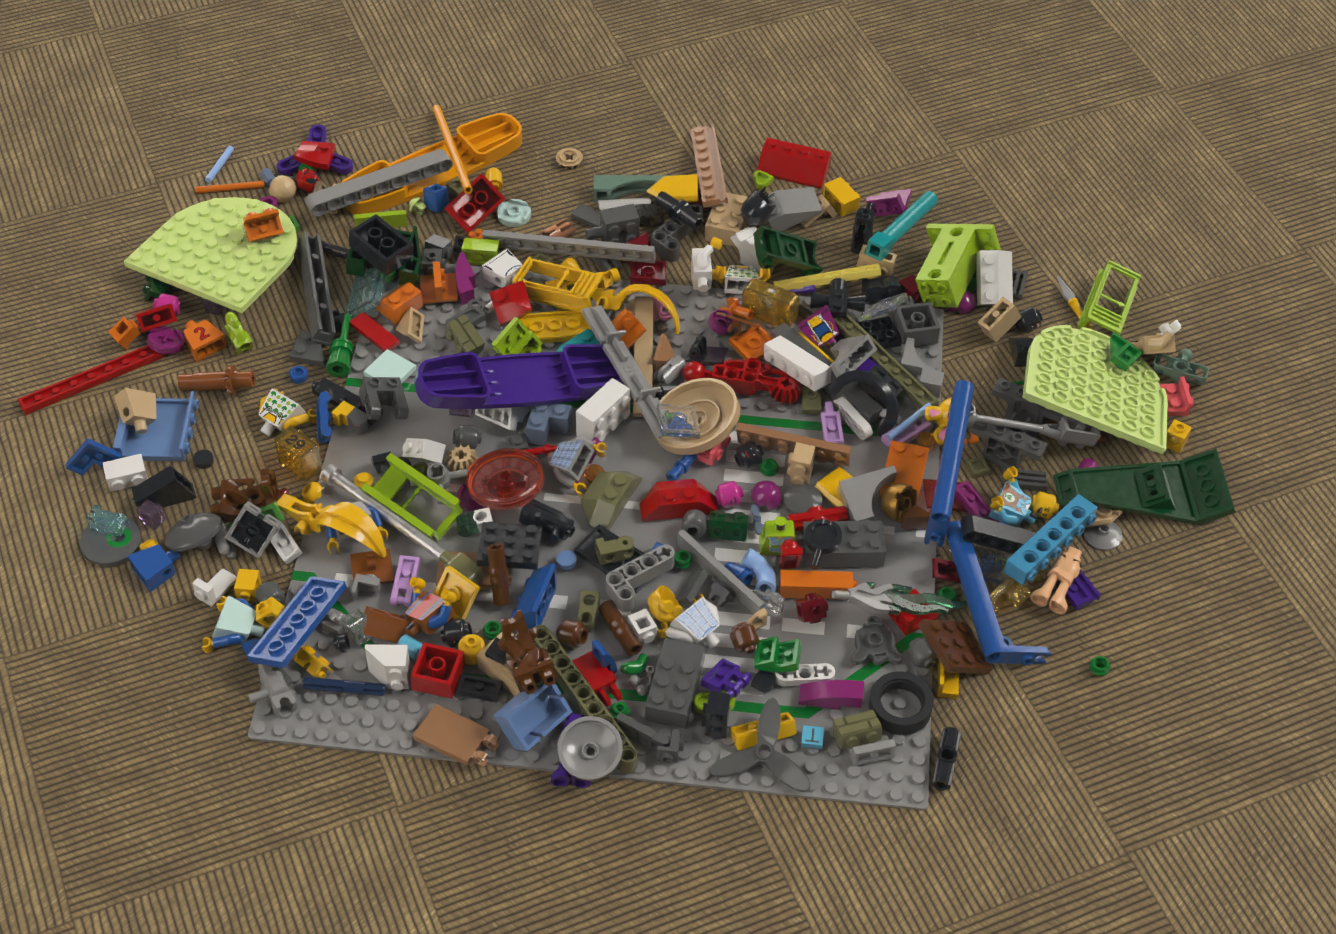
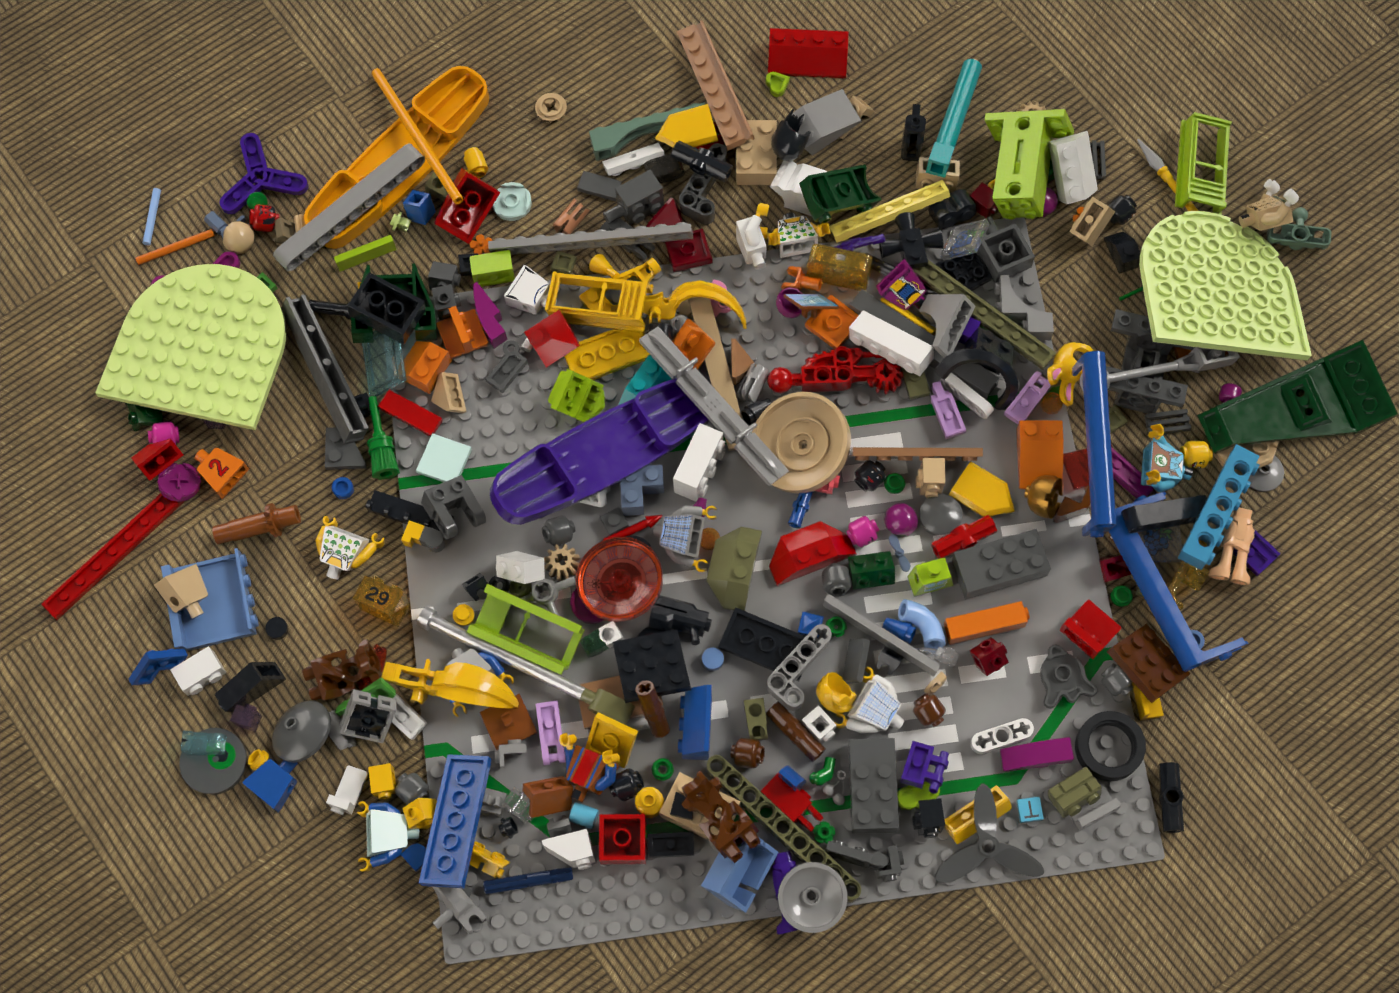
camera: 10 degrees left, 20 degrees up
(124, 332) = (130, 486): orange brick -> none
(239, 337) = (260, 459): lime animal -> none
(262, 225) = (239, 309): orange bracket -> none
(311, 492) = (412, 643): yellow plate -> none
(315, 154) = (260, 180): red plate -> none
(323, 418) = (392, 545): blue plate -> none
(456, 736) = (663, 908): medium nougat tile -> none
(464, 335) = (514, 398): olive brick -> none
(614, 550) = (764, 640): olive leg -> none
(678, 421) = (787, 461): clear tile -> none
(705, 354) = (786, 351): black hinge -> none
(763, 681) = (962, 754): black tile -> none
(778, 656) = (969, 722): green slope -> none
(790, 554) = (949, 595): red tile -> none
(822, 538) = (981, 570): black piece -> none
(841, 196) = (873, 87): yellow brick -> none
(859, 491) = (1002, 500): light grey arch -> none
(890, 202) = (930, 84): magenta bracket -> none
(894, 599) = (1078, 630): piece -> none
(907, 423) = (1031, 389): light blue bar -> none
(1102, 662) = (1302, 636): green plate -> none
(1122, 352) = (1237, 235): green wing -> none
(1177, 436) = (1316, 326): yellow brick -> none
(1178, 398) = (1304, 272): coral bracket -> none

